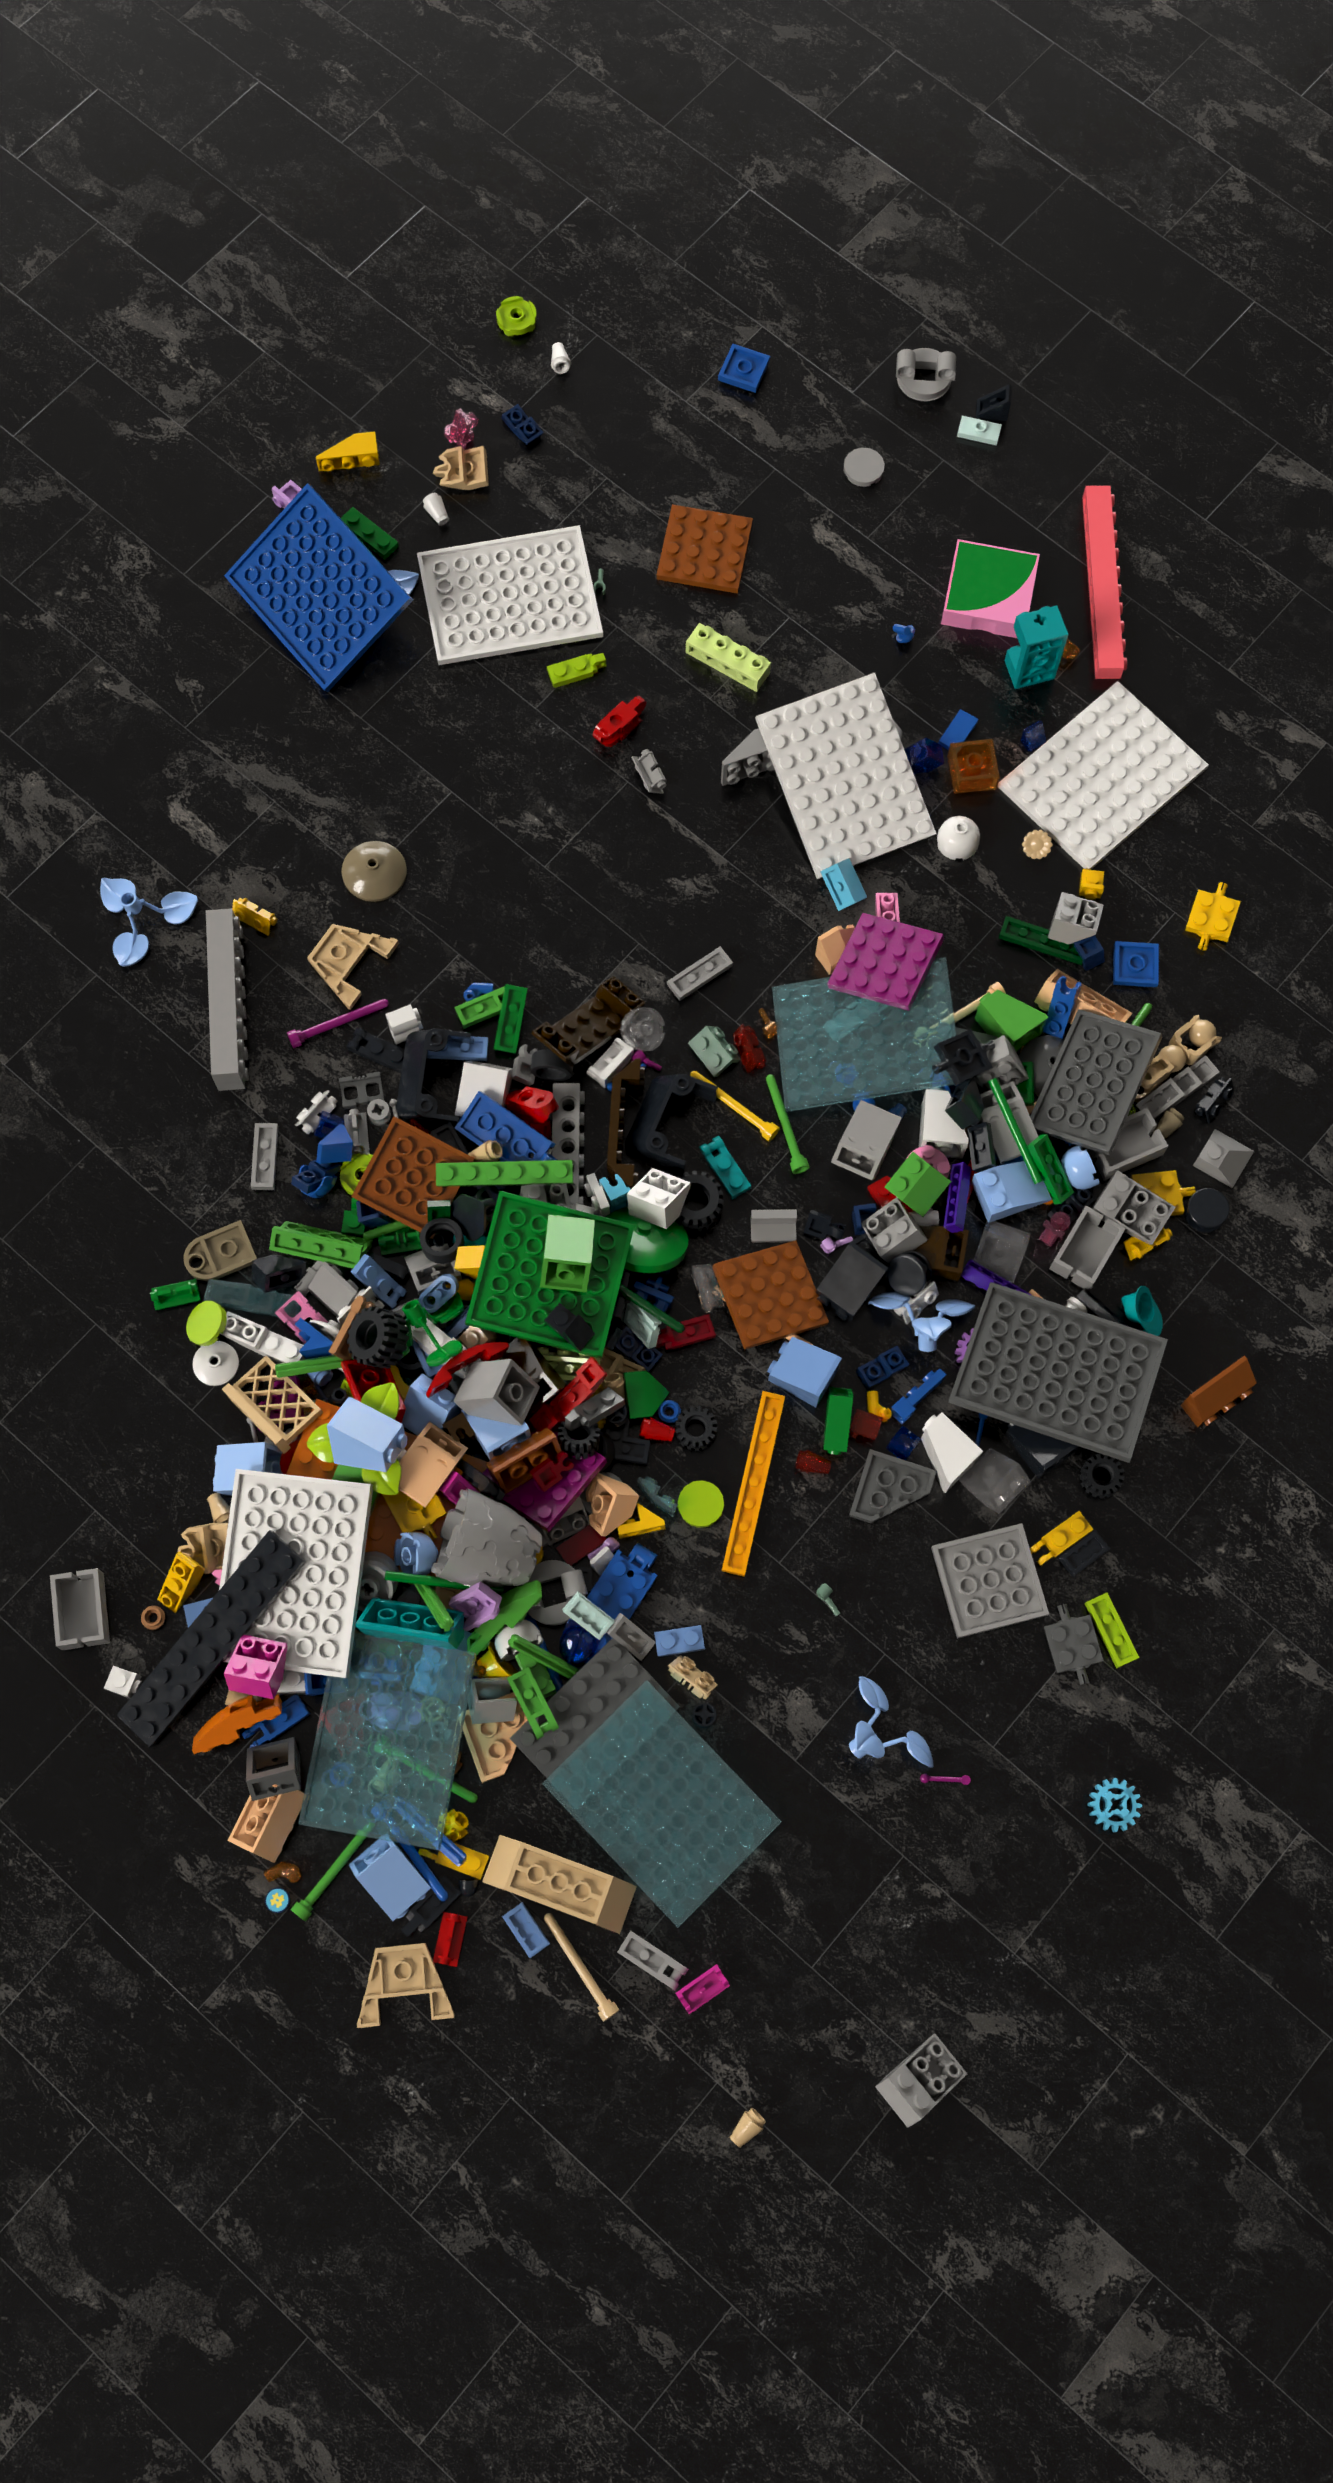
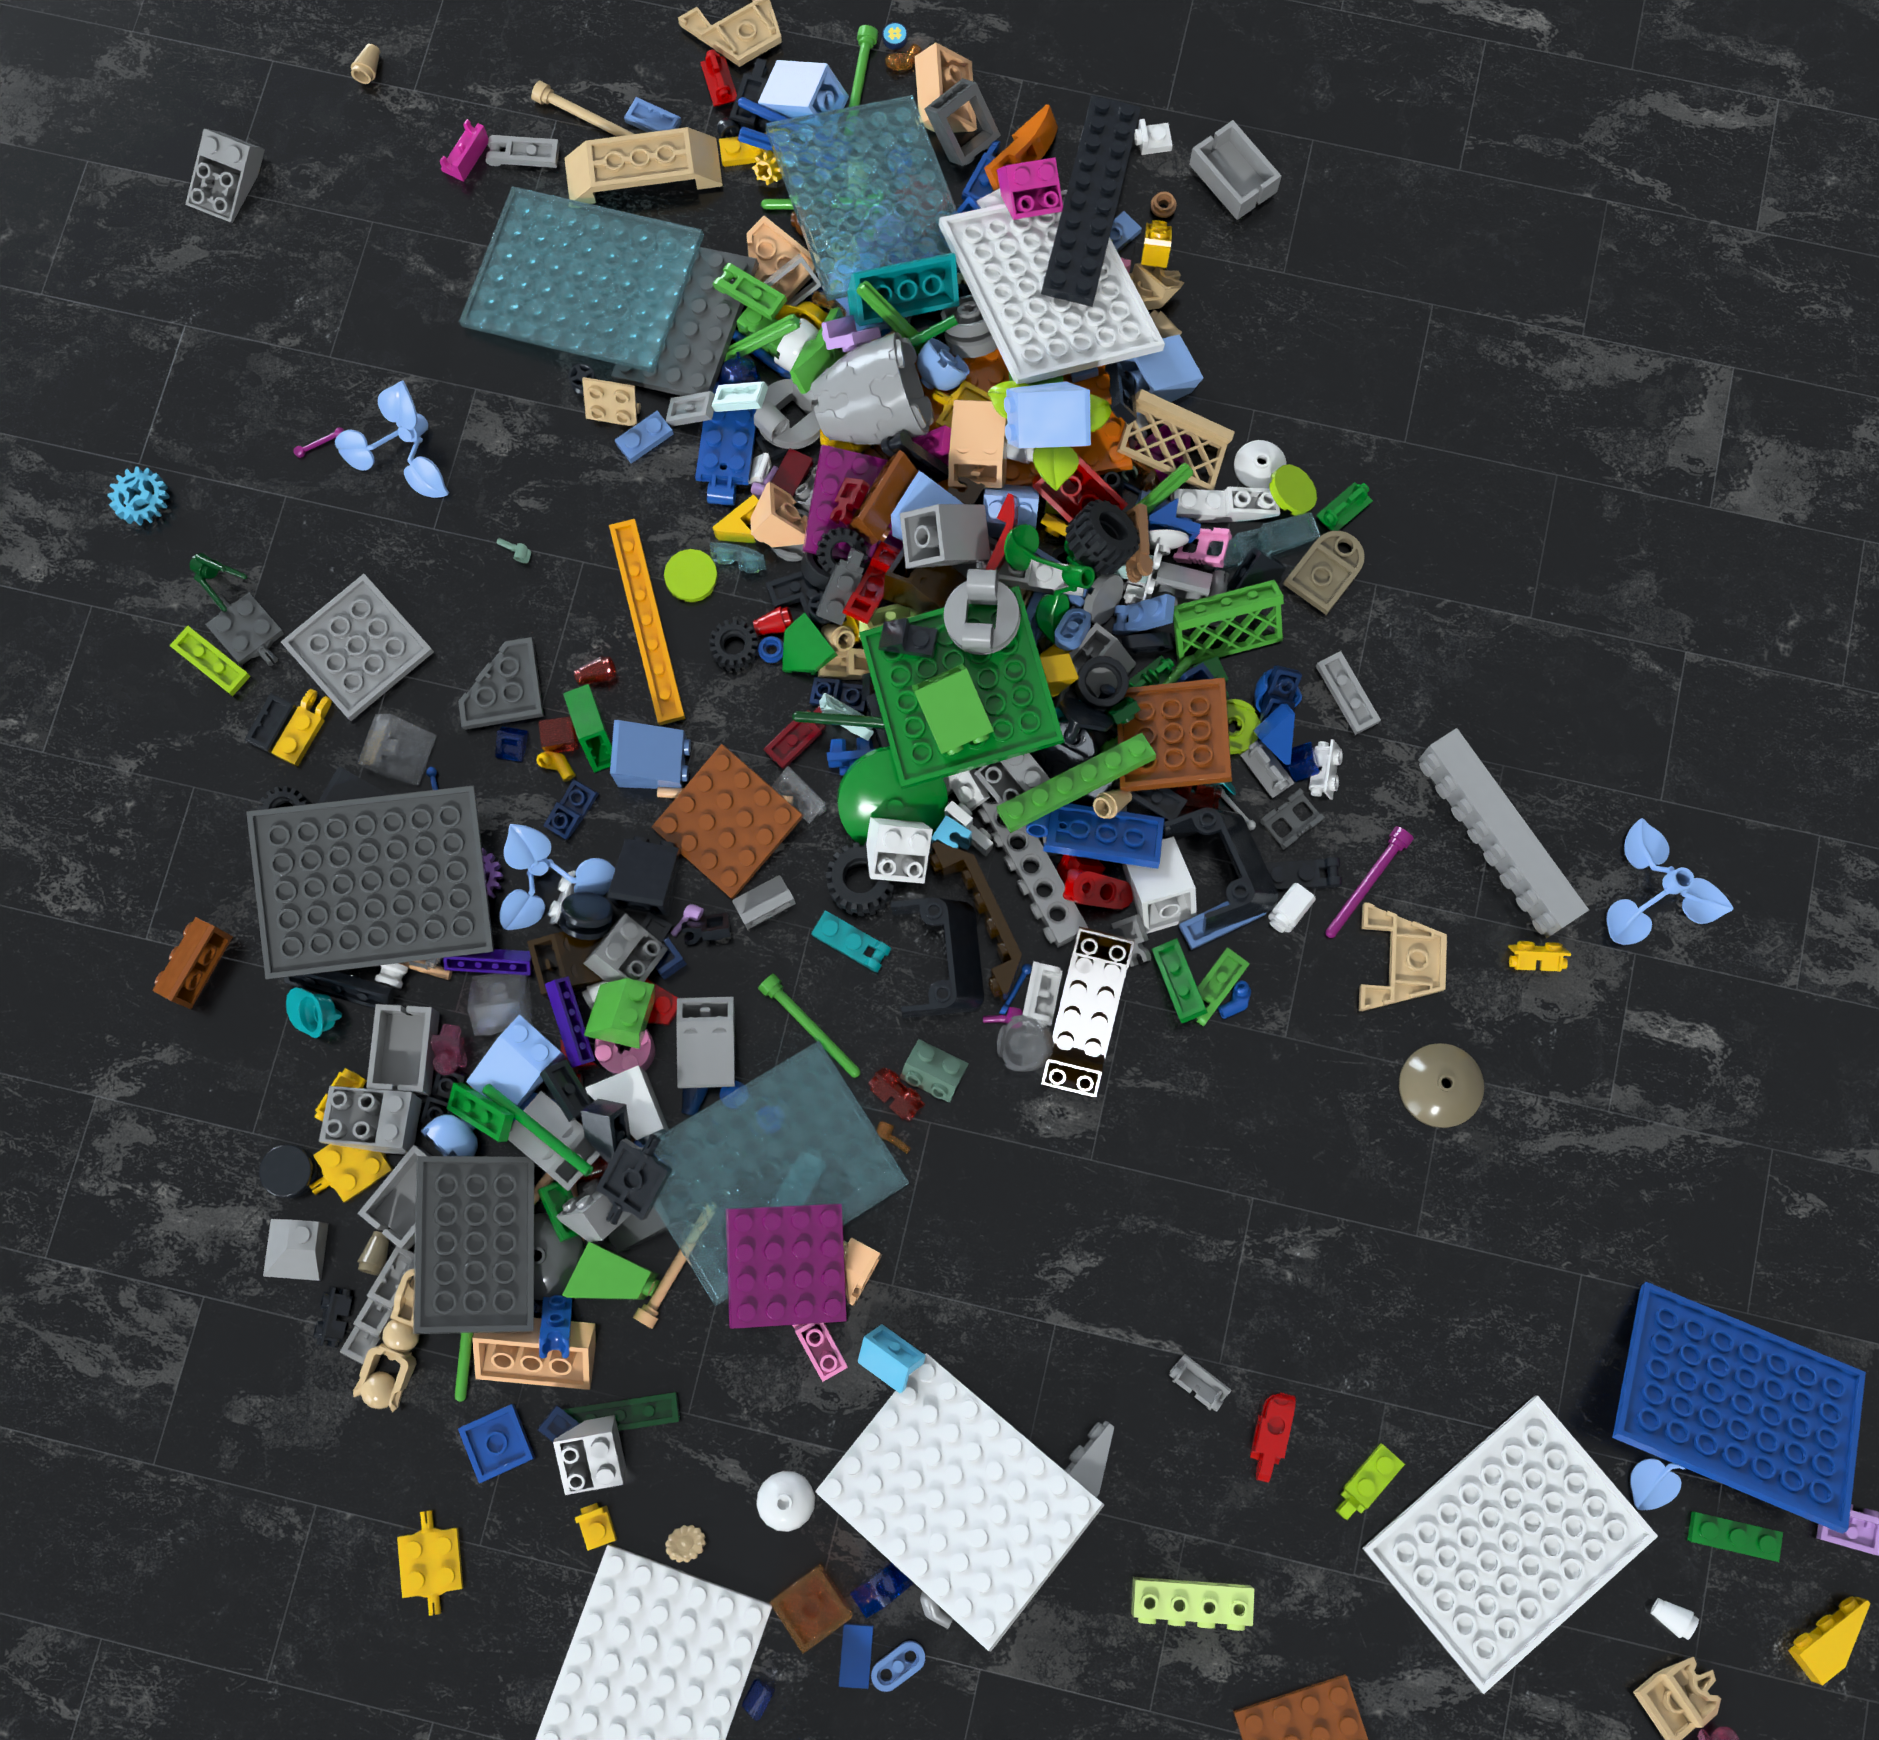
camera: 155 degrees right, 5 degrees up
(292, 1447) = (1122, 392): none -> black plate
(380, 1117) = (1256, 808): light grey wheel -> none
(519, 1290) = (984, 589): none -> light grey piece
(599, 584) = (1411, 1626): sand green hand -> none
(700, 973) = (999, 1154): light grey plate -> none
(768, 1130) = (826, 1008): yellow piece -> none
(905, 1408) = (526, 775): blue plate -> none
(933, 711) = (898, 1665): none -> medium blue plate
(948, 1449) = (453, 748): white slope -> none
(1083, 1711) = (207, 569): none -> dark green plant

